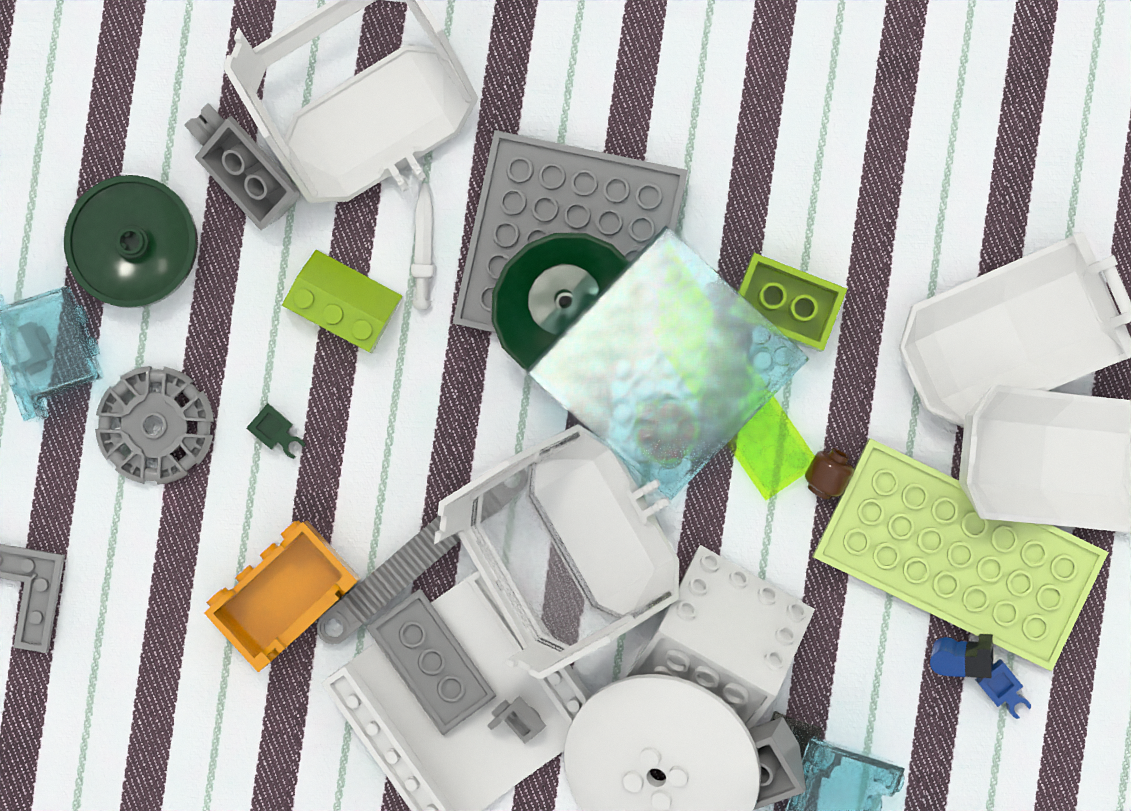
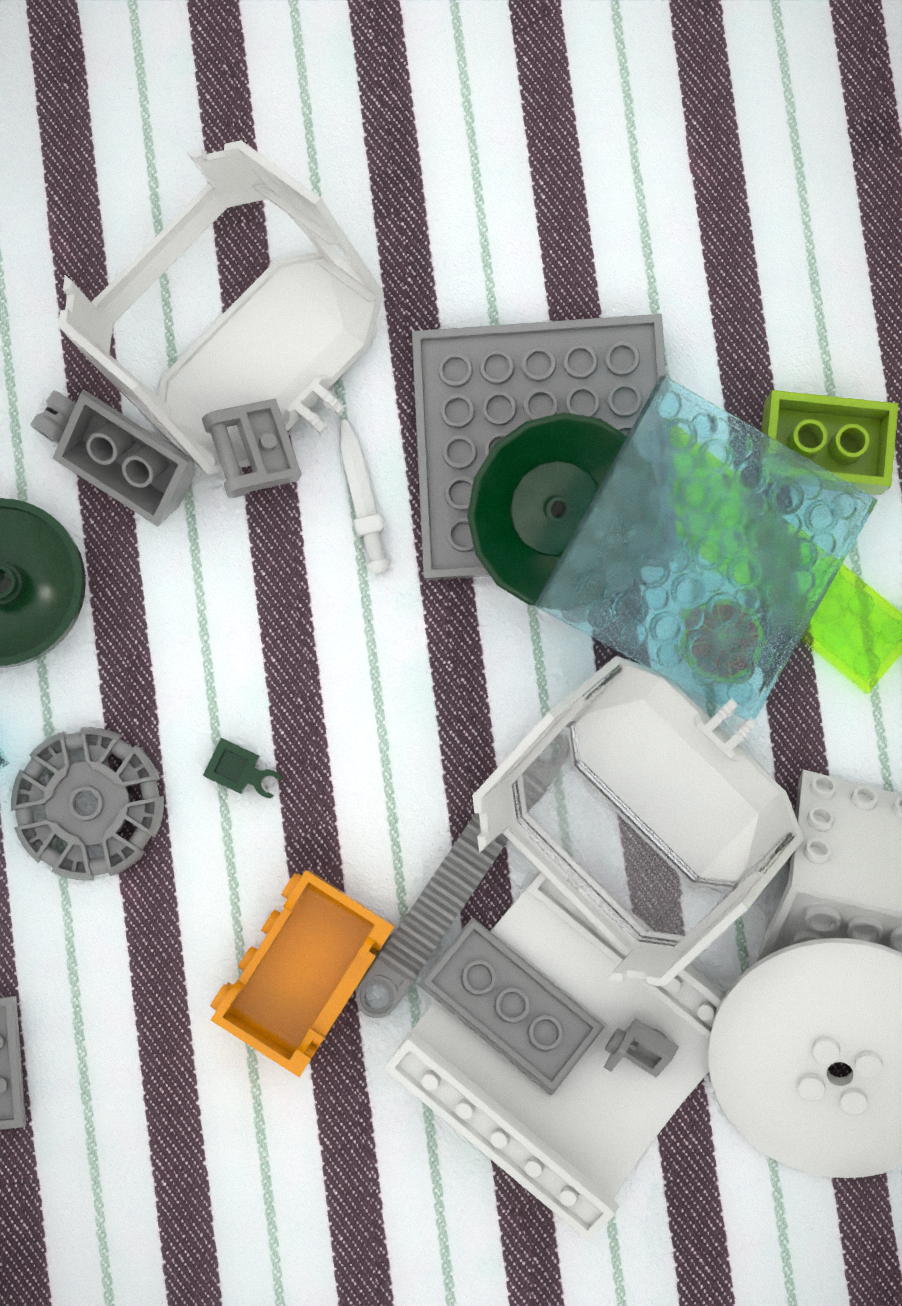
camera: 20 degrees left, 5 degrees down
(342, 301) = (280, 589): lime slope -> none
(358, 191) = (264, 442): none -> light grey plate

